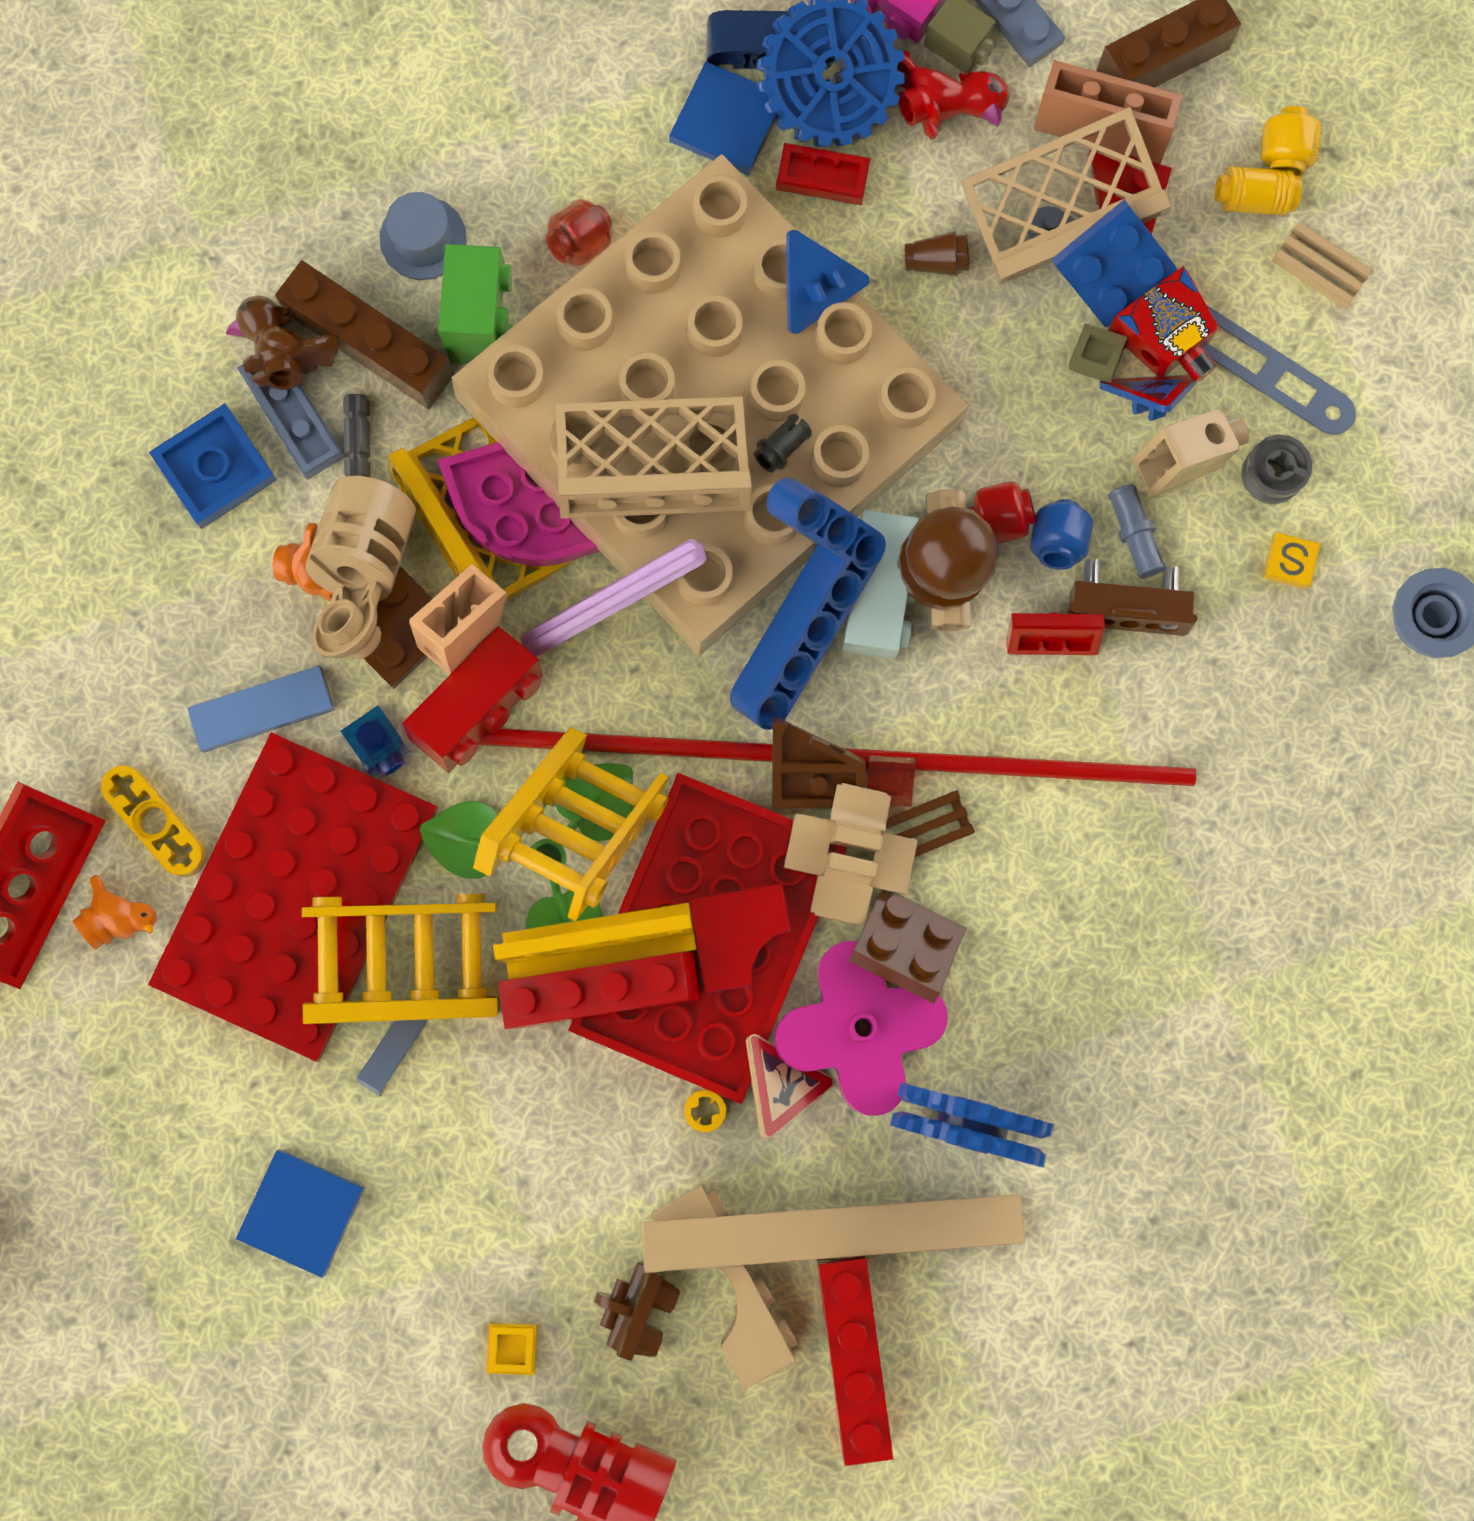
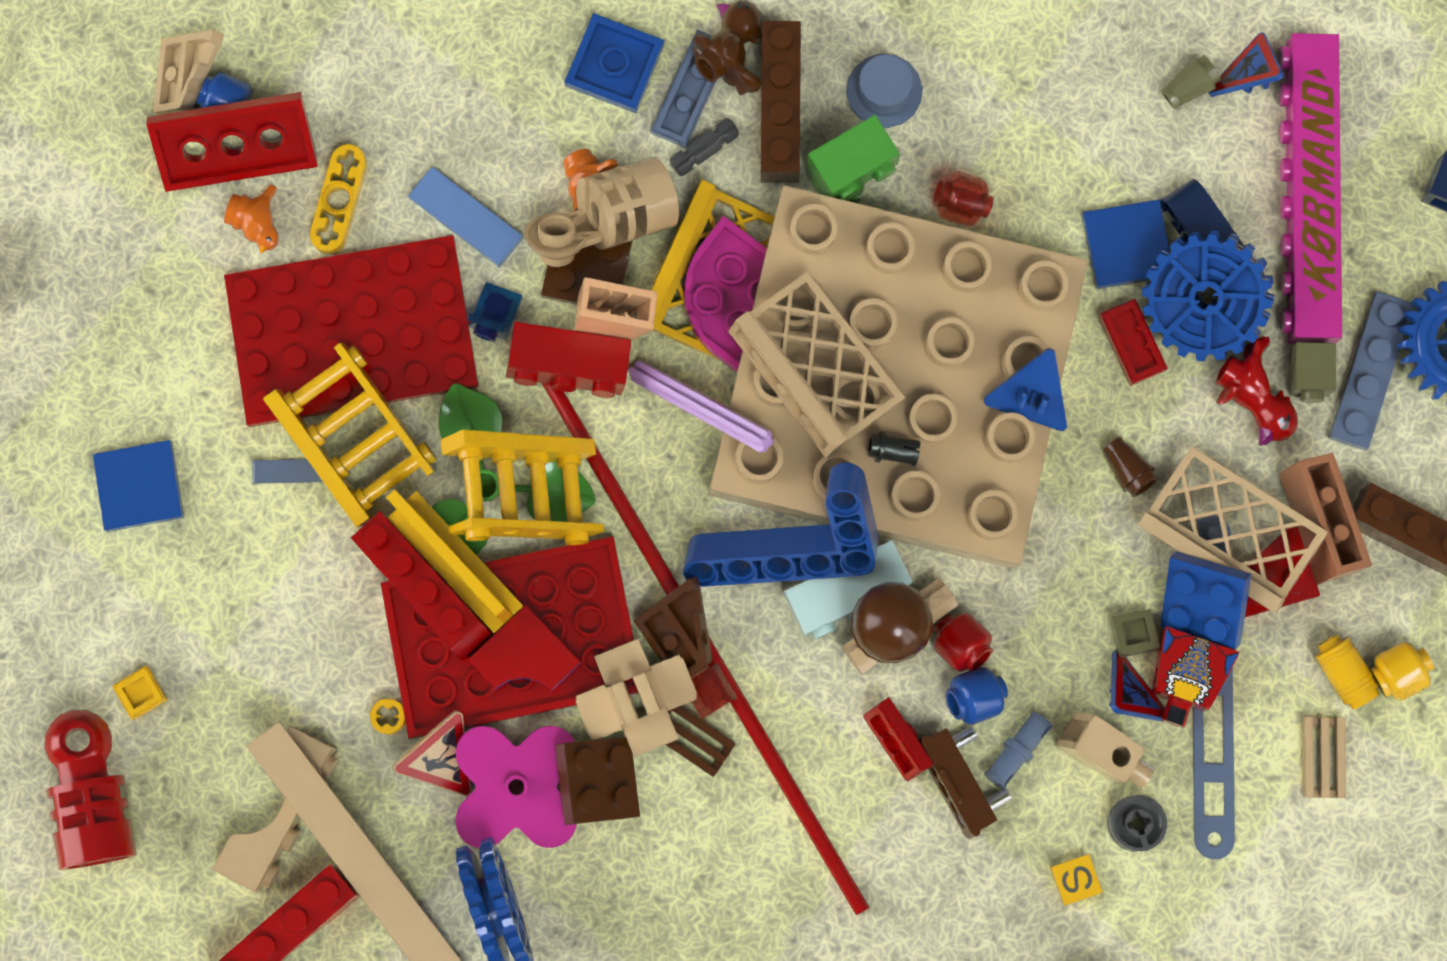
camera: 60 degrees right, 0 degrees up
(629, 1309) = (202, 765): reddish brown hips -> none

